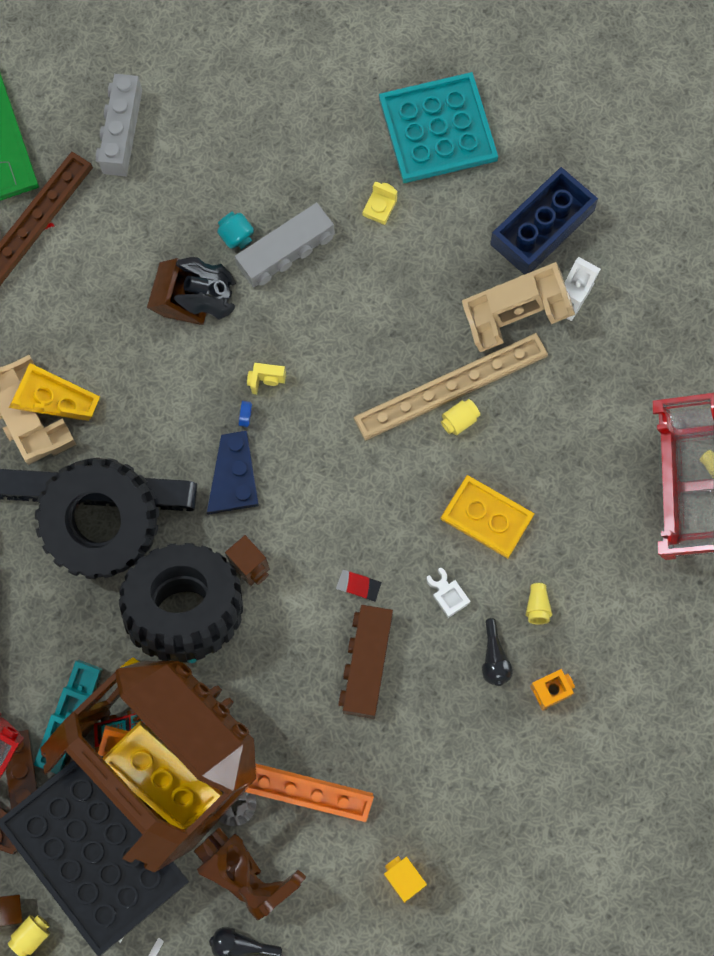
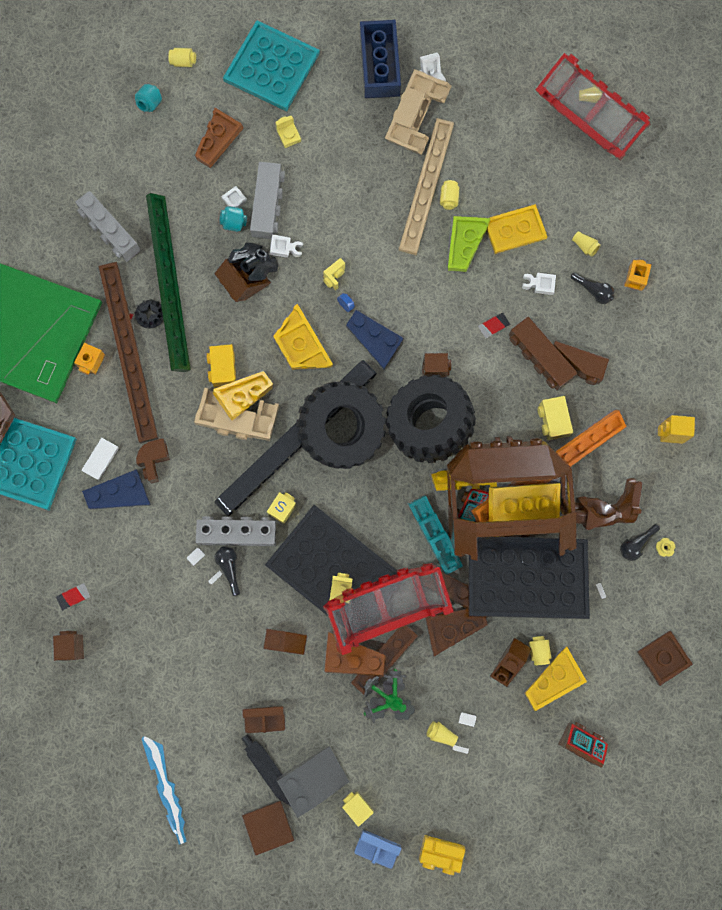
camera: 55 degrees left, 5 degrees up
(64, 250) = (154, 319): none -> black gear
(69, 352) = (222, 365): none -> yellow brick
(112, 229) = (168, 283): none -> dark green plate
(161, 407) = (300, 343): none -> yellow wing
(250, 302) = (282, 247): none -> white plate
(261, 214) = (234, 197): none -> white tile
(291, 46) = (148, 98): none -> teal head
(305, 736) = (555, 418): none -> light yellow brick
(314, 144) = (219, 135): none -> dark orange wing
(365, 39) = (182, 57): none -> light yellow brick
(396, 718) = (587, 365): none -> reddish brown slope
(422, 476) = (465, 240): none -> lime wing

